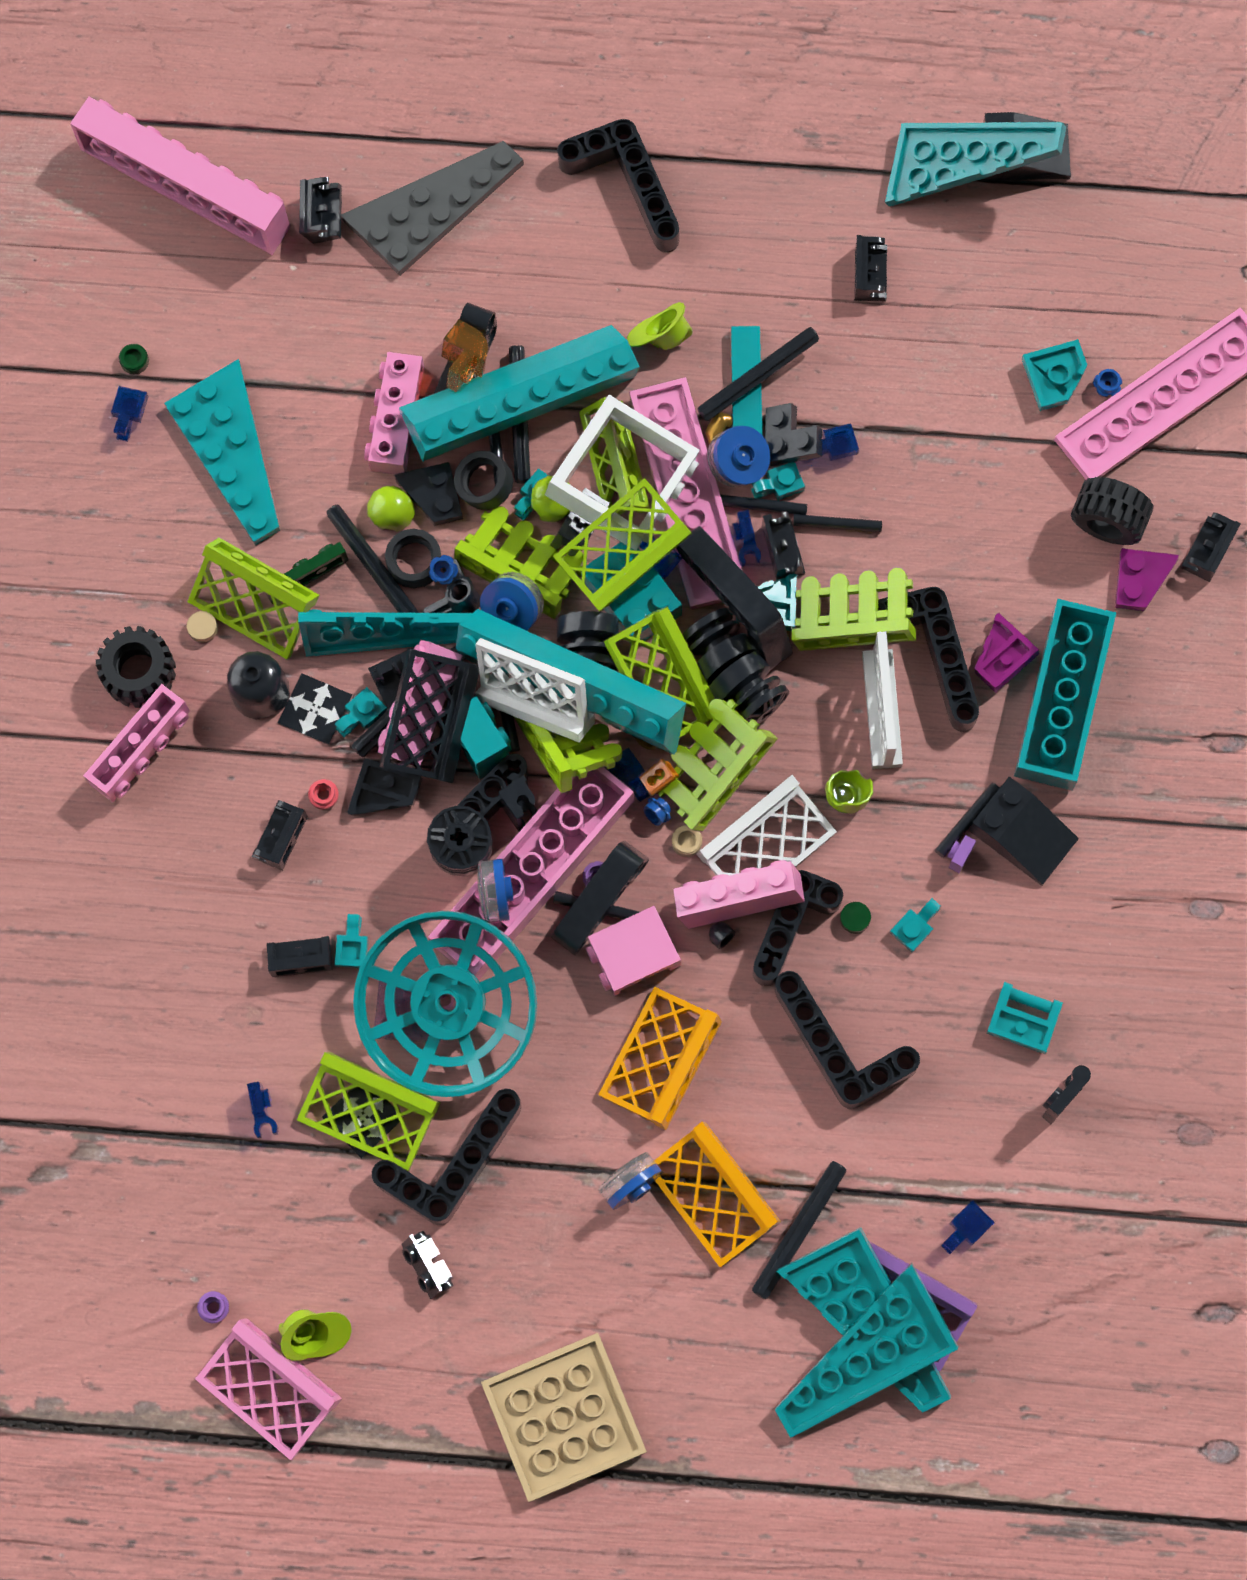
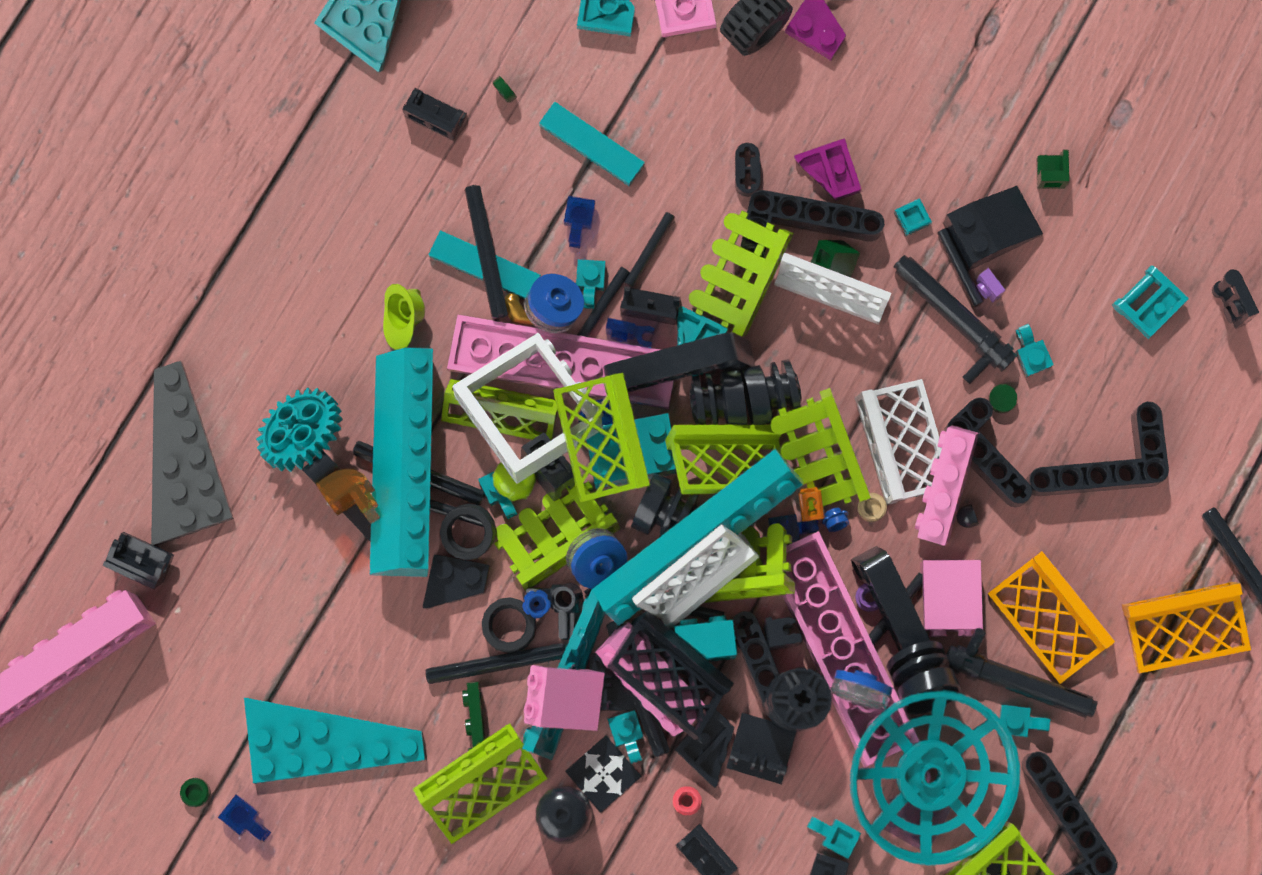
camera: 65 degrees left, 5 degrees up
(202, 626) = (481, 840): tan tile -> none
(363, 630) = (563, 698): none -> bright pink panel
(390, 508) = (451, 625): lime hair -> none
(391, 439) = (353, 575): bright pink brick -> none
(402, 840) = (761, 749): none -> black hinge
(505, 286) = (299, 429): none -> teal gear
(541, 1071) = (1019, 720): none -> teal plate
(546, 948) = (920, 670): none -> black wheel
(576, 1006) = (976, 666): none -> black cylinder
(630, 1181) = (1153, 690): piece -> none
(634, 173) = (244, 272): black beam -> none
(786, 441) = (555, 258): black plate -> none
(848, 791) = (894, 351): lime hair -> none
(903, 876) = (987, 342): none -> black cylinder
(914, 424) = (591, 143): none -> teal tile
(914, 696) = (836, 256): none -> dark green panel
(925, 319) = (503, 88): none -> dark green tile
(960, 570) = (753, 169): none -> black beam
(995, 753) = (913, 217): none -> teal tile
(1065, 694) = (894, 135): teal brick -> none
(1110, 865) = (1053, 171): none -> dark green panel

